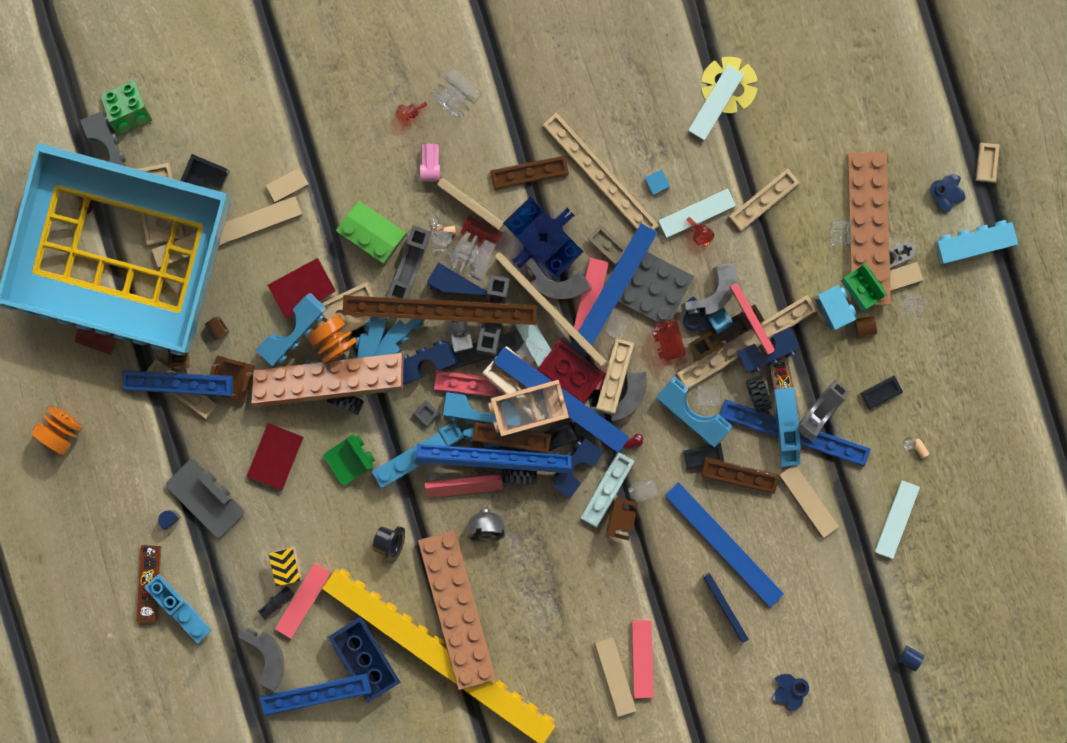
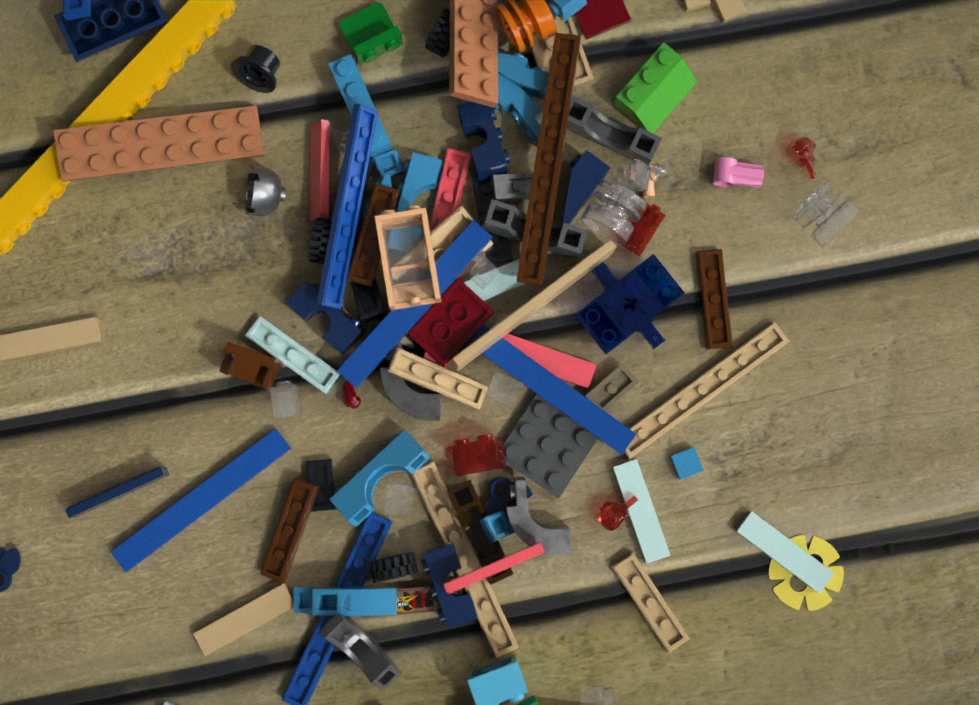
camera: 90 degrees right, 5 degrees down
(426, 413) = (418, 135): dark grey tile -> none
(470, 203) = (681, 217): tan tile -> none
(568, 289) = (558, 330): flat silver arch -> none
(642, 658) = (66, 376): coral tile -> none

